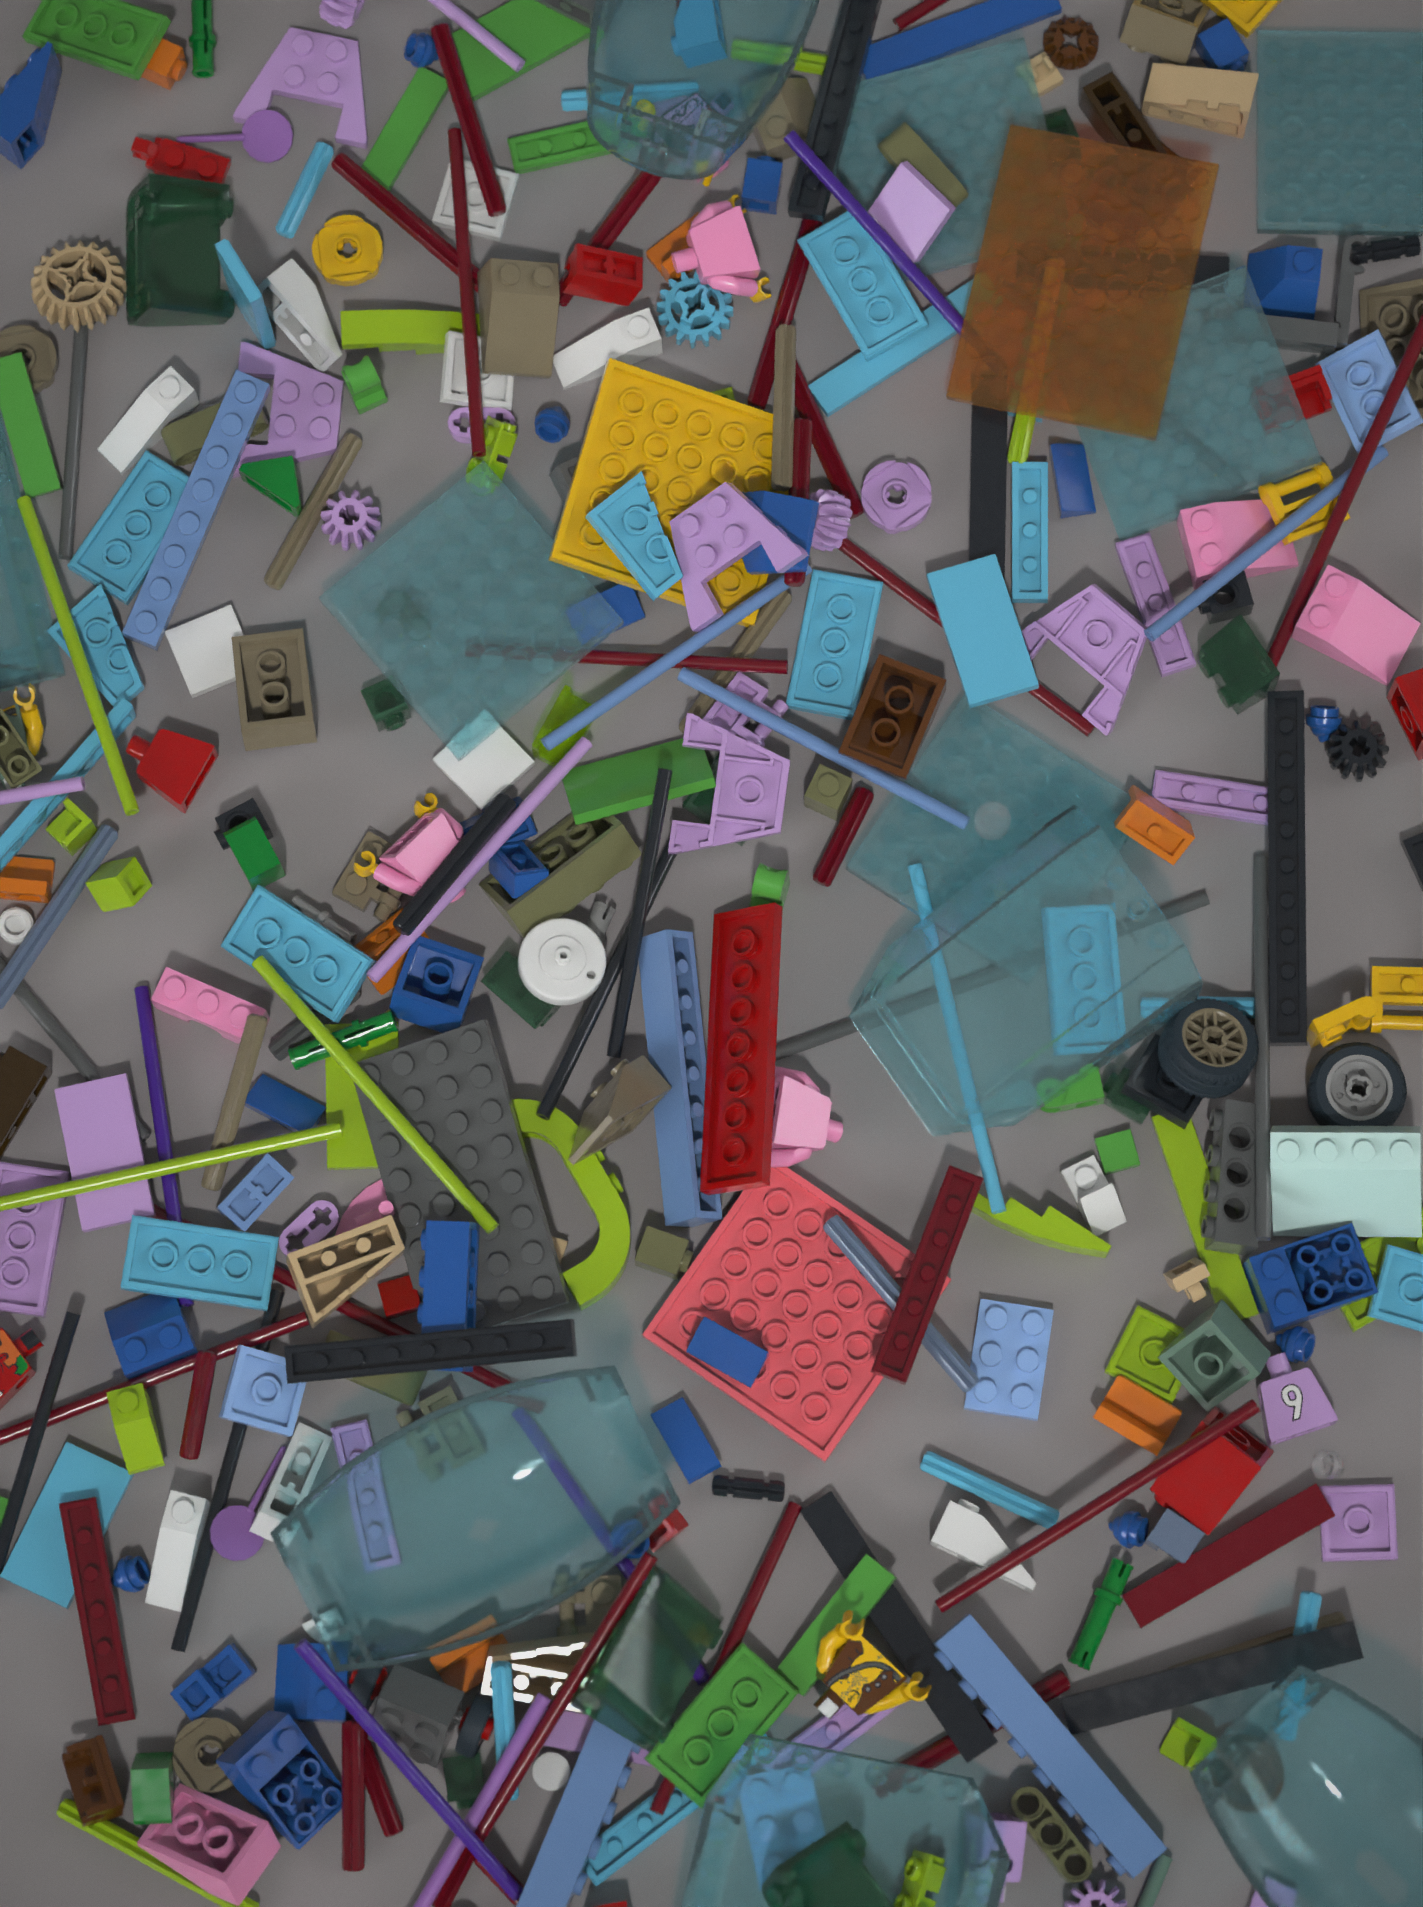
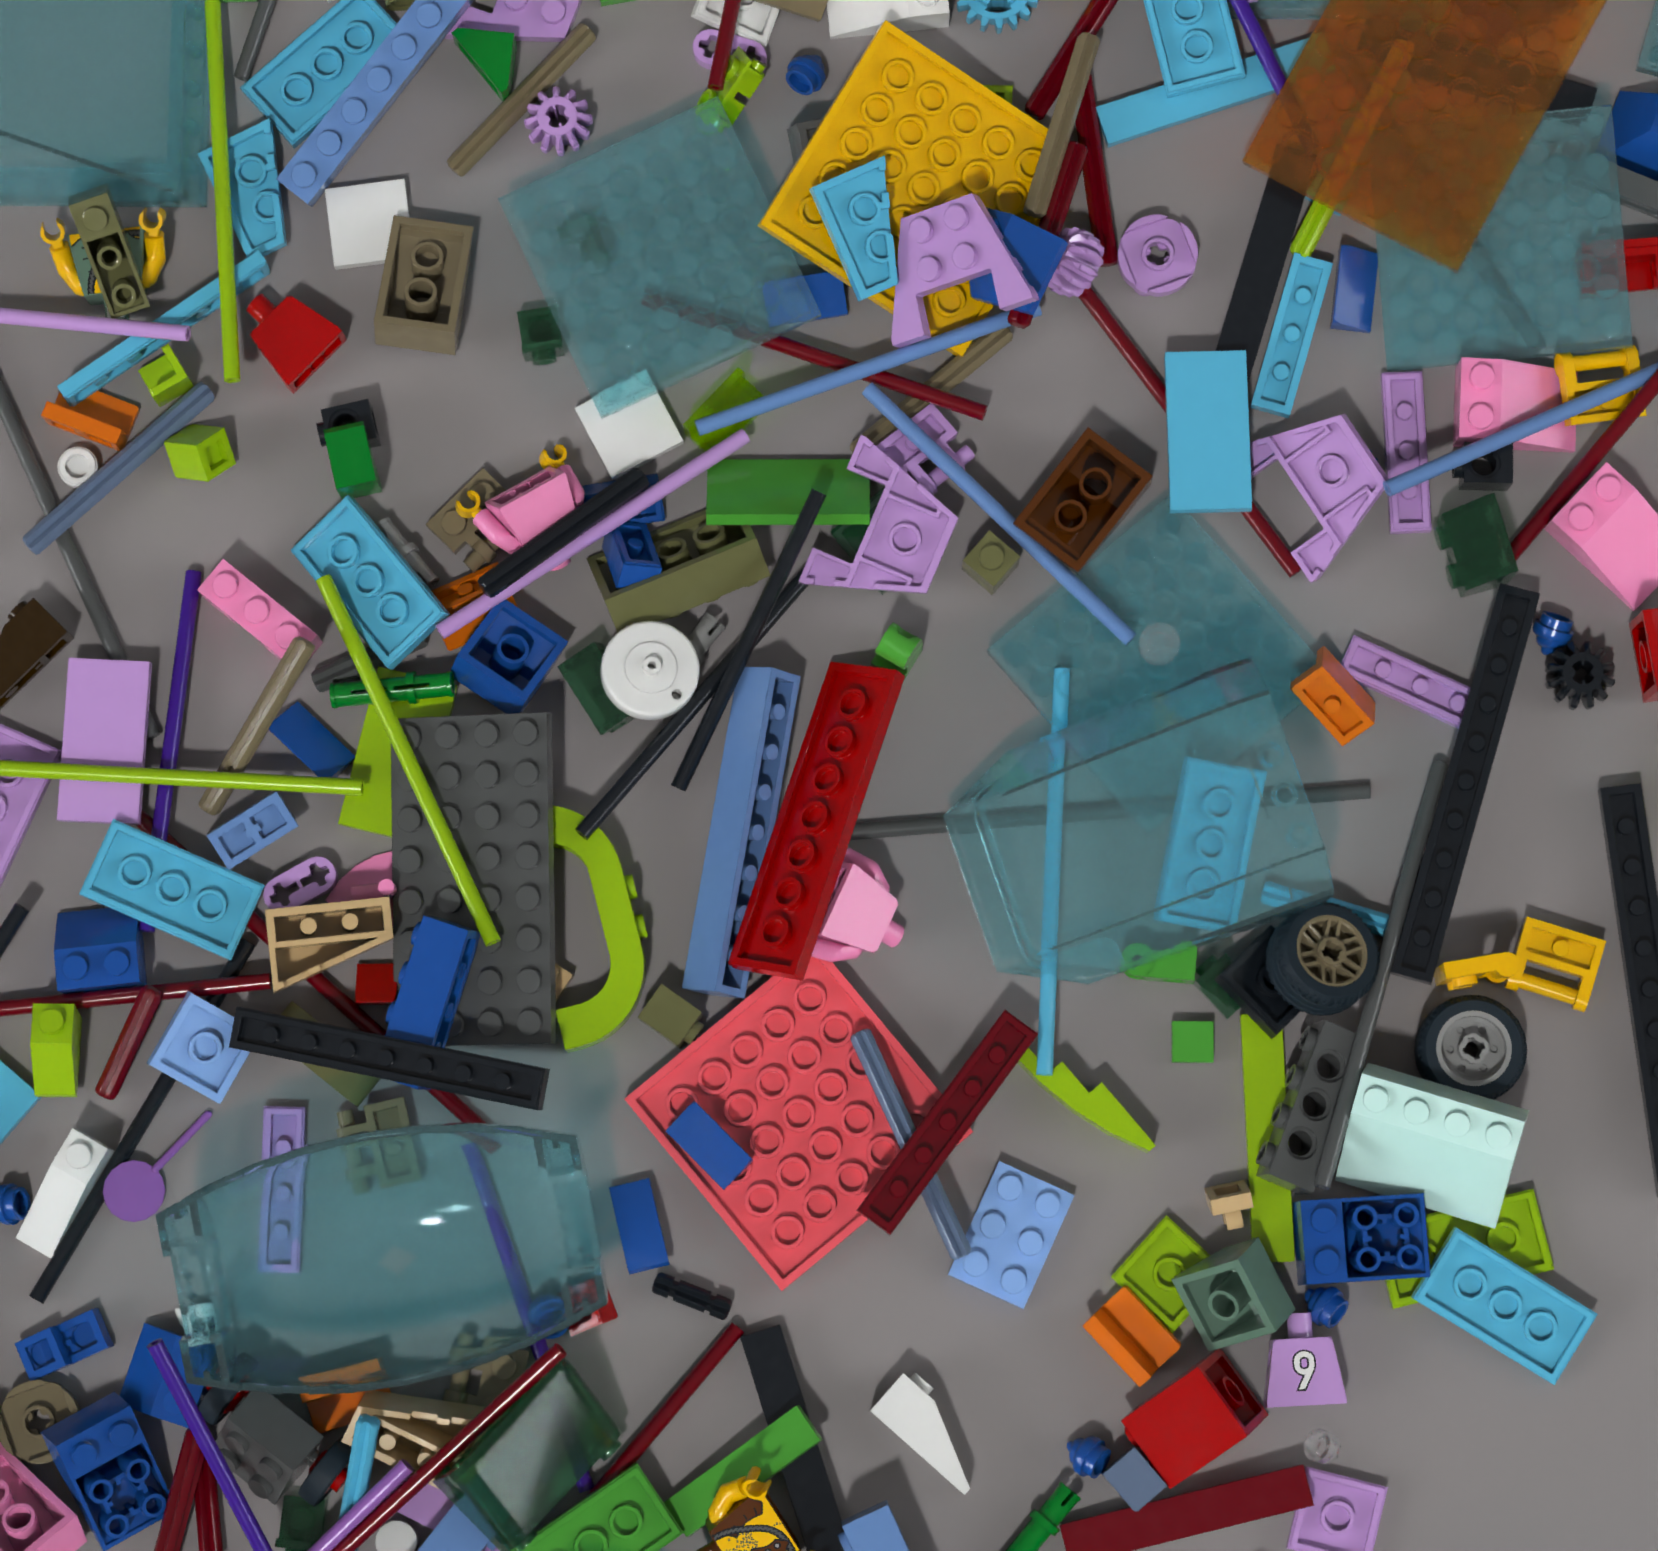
camera: 15 degrees right, 5 degrees up
(292, 1478) = (206, 1151): white slope -> none
(618, 1106) = (665, 846): dark tan slope -> none
(834, 644) = (1044, 401): medium azure tile -> none
(843, 836) = (994, 615): dark red axle -> none
(989, 1490) = (950, 1371): medium azure axle -> none
(1094, 1196) = (1153, 1083): white slope -> none
(1097, 1505) = (1059, 1426): dark red piece -> none

